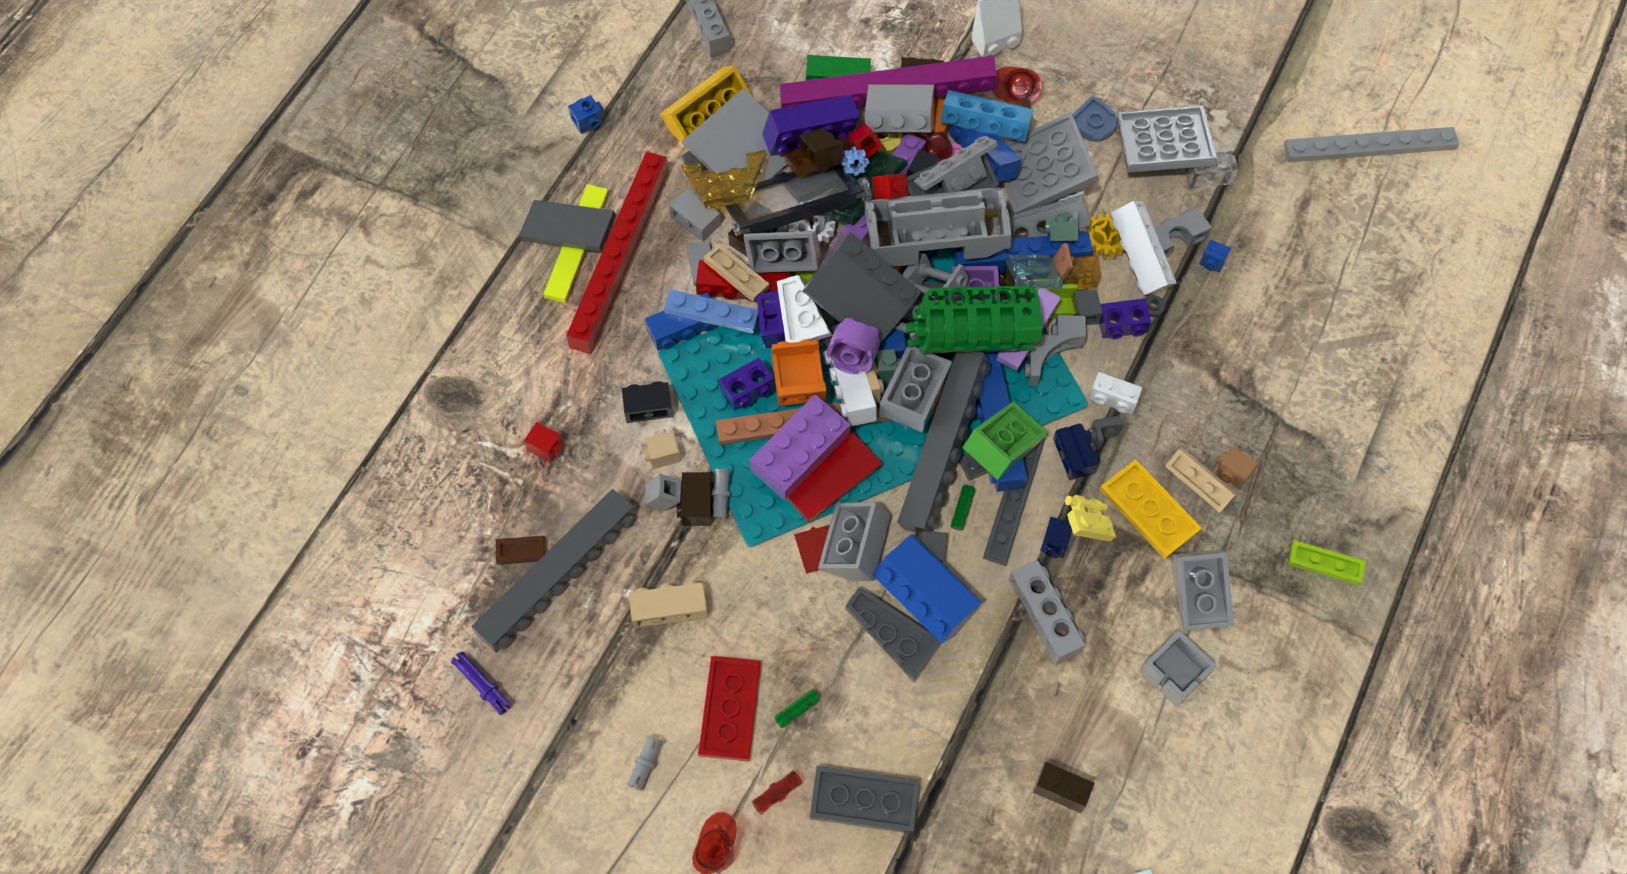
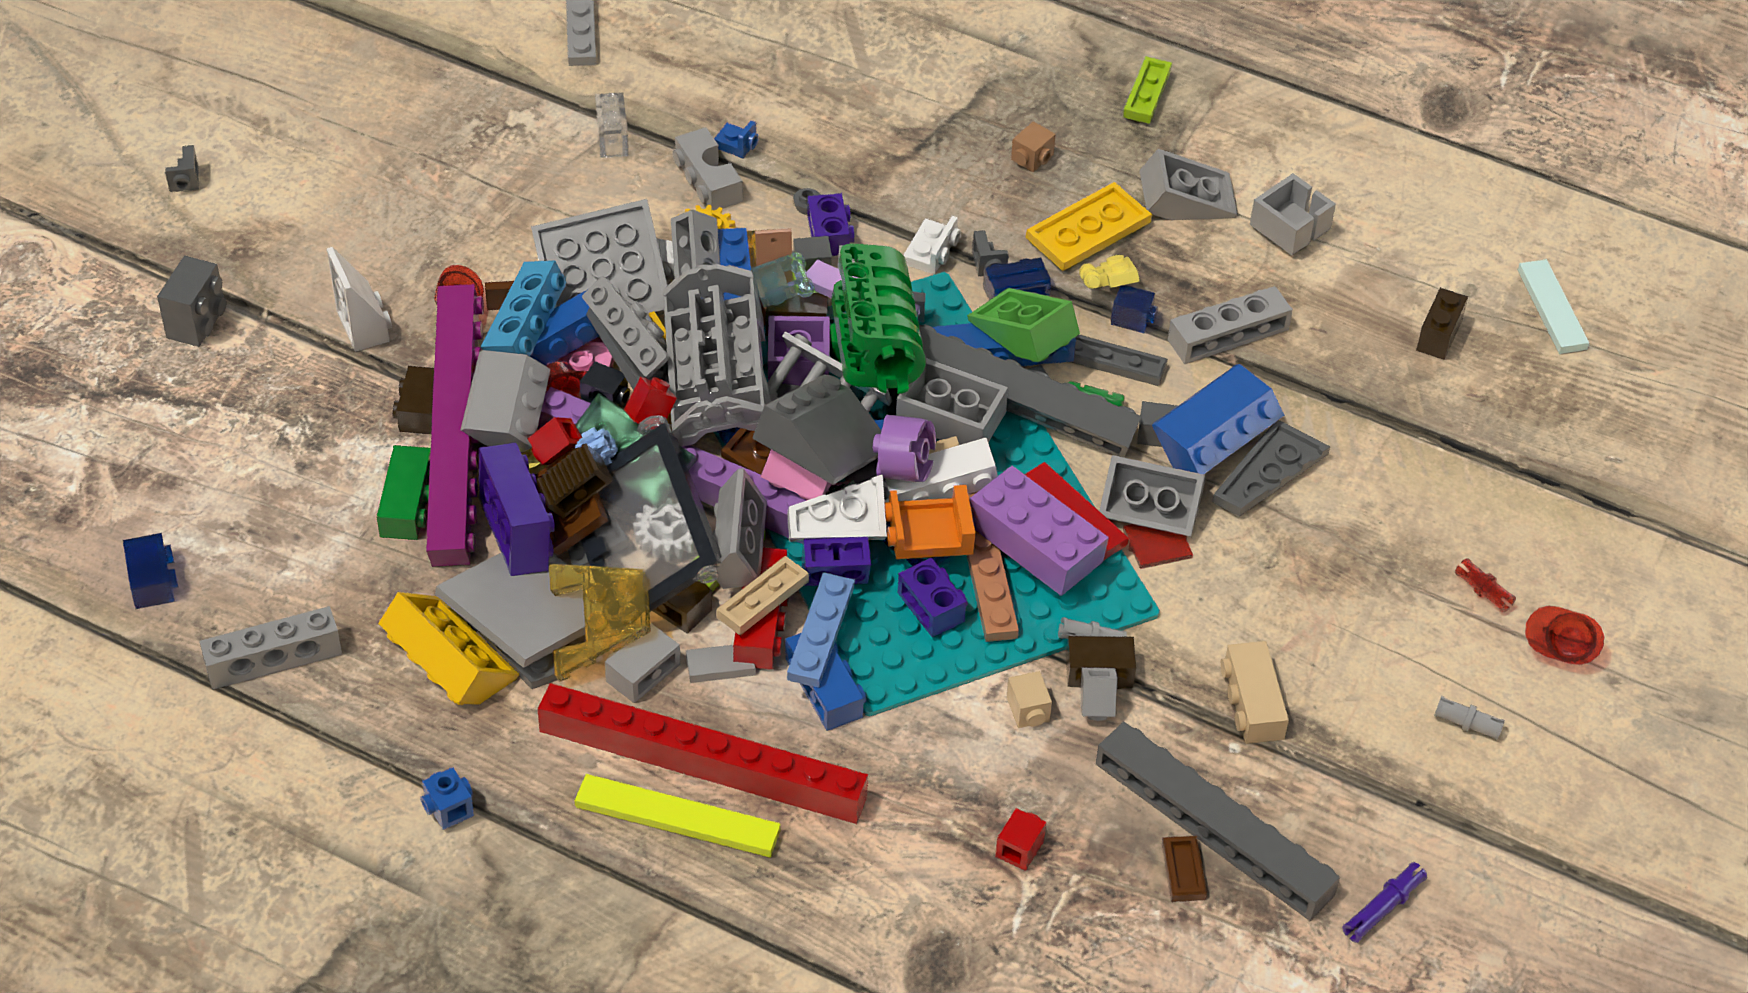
camera: 90 degrees left, 15 degrees down
(567, 225) = (653, 819): dark grey tile -> none
(647, 402) = (954, 718): black brick -> none
(729, 708) = (1382, 634): red tile -> none
(797, 708) = (1375, 565): green axle -> none
(864, 799) = (1481, 503): dark grey plate -> none
(1063, 227) = (722, 238): sand green brick -> none
(1095, 120) = (510, 234): sand blue tile -> none
(1143, 248) = (738, 186): white brick -> none
(1166, 139) = (565, 156): light grey tile -> none
(1201, 480) = (1049, 178): tan plate -> none

